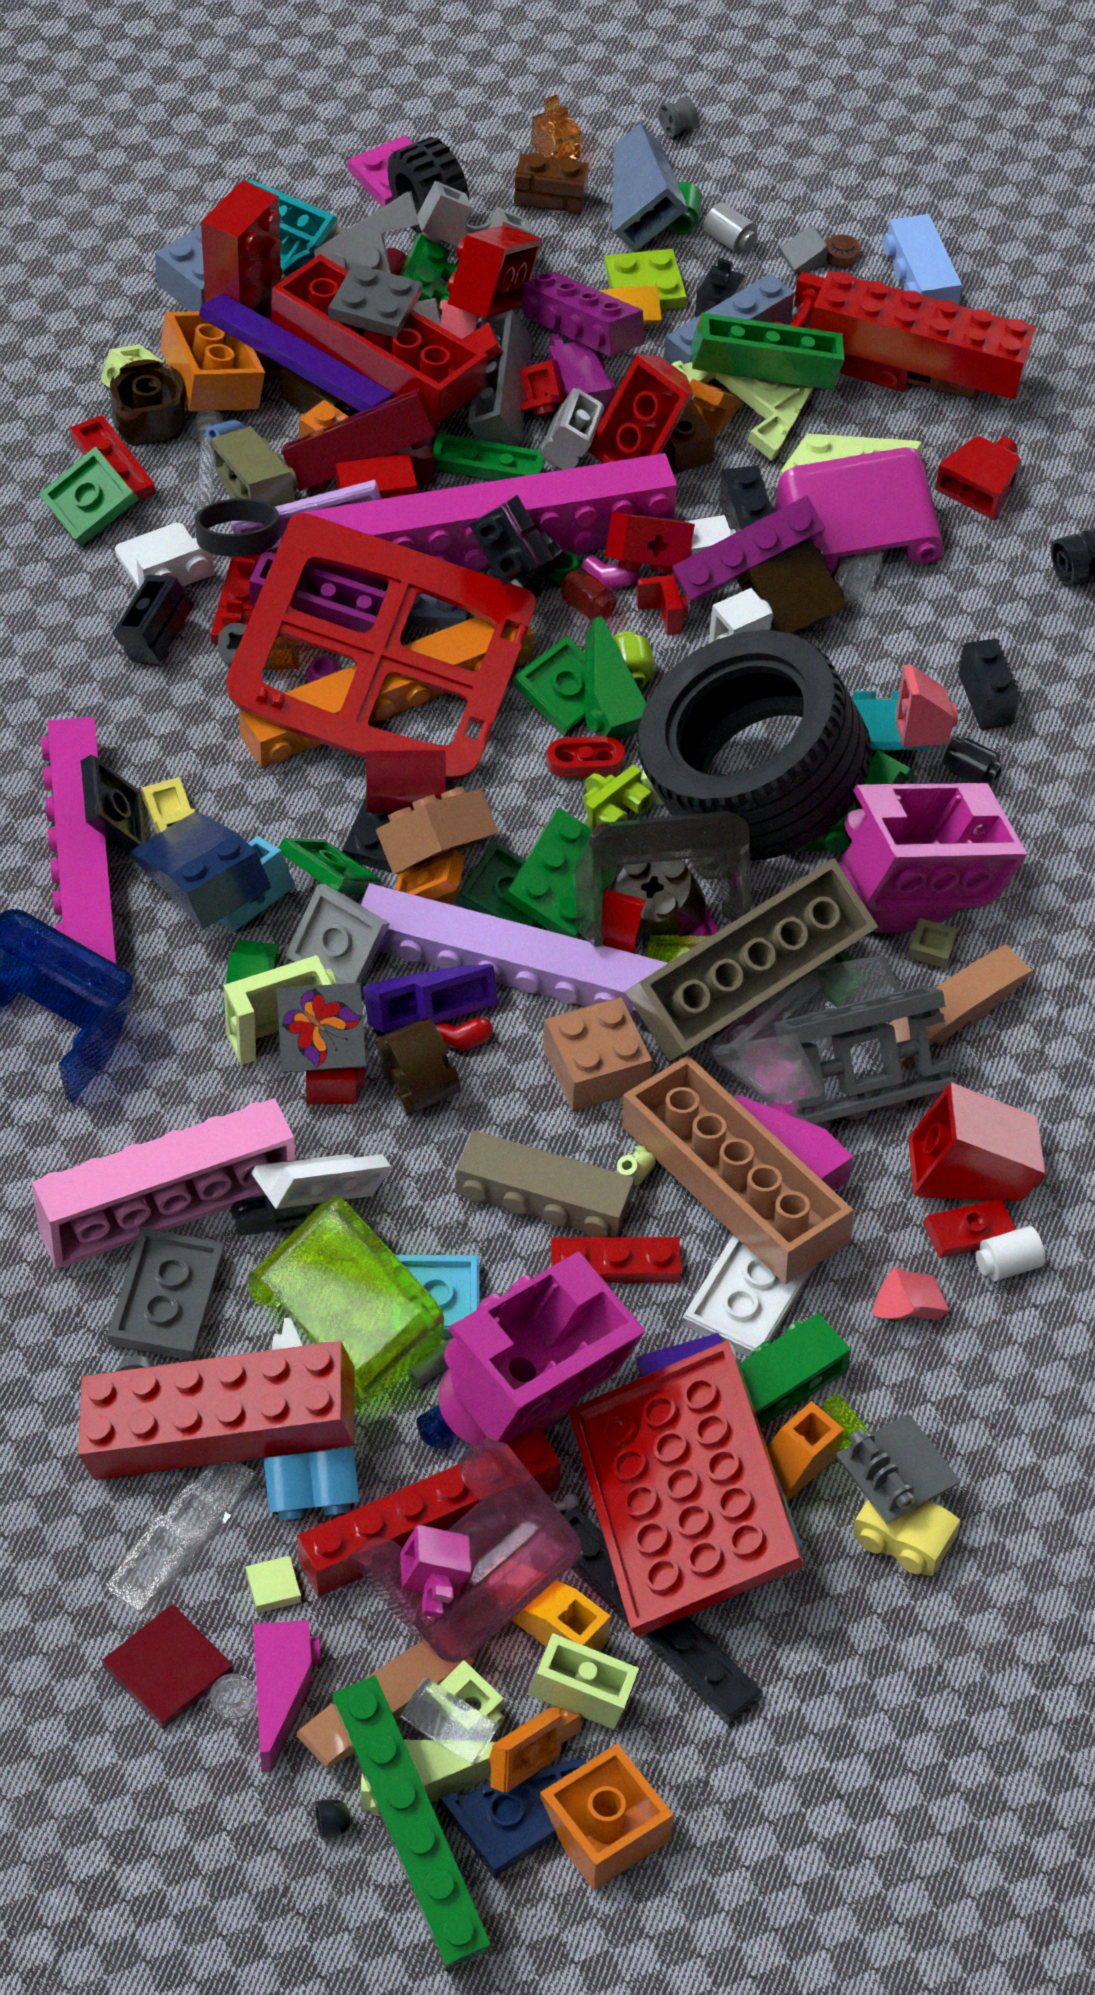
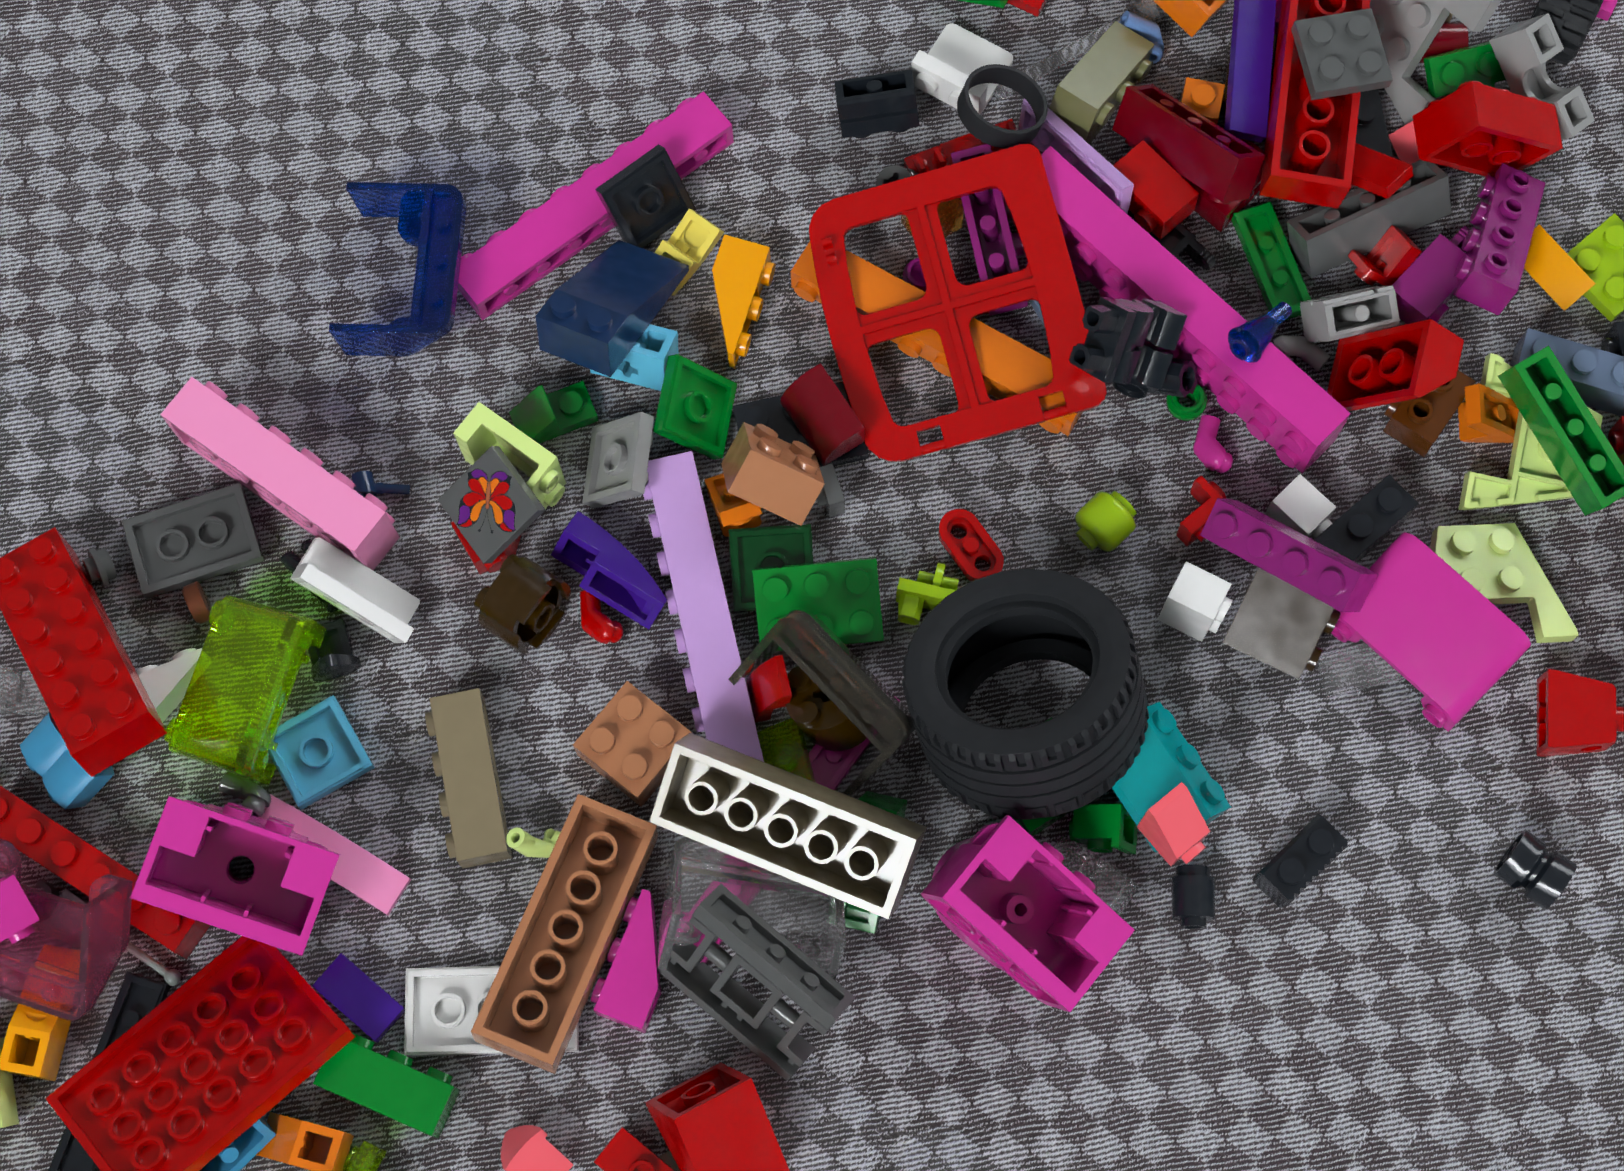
camera: 65 degrees right, 20 degrees up
(231, 1314) = (197, 602): none -> copper tile
(242, 796) = (738, 282): none -> light orange slope
(556, 685) = (1042, 482): green plate -> none
(564, 471) = (1252, 338): none -> clear blue cone
(588, 594) = (1164, 441): clear red brick -> none
(611, 693) = (1047, 528): green slope -> none
(624, 1257) = (437, 879): red plate -> none
(630, 537) = (1253, 459): red brick -> none
(932, 943) = (950, 971): olive plate -> none
(971, 995) = (906, 1037): nougat slope -> none

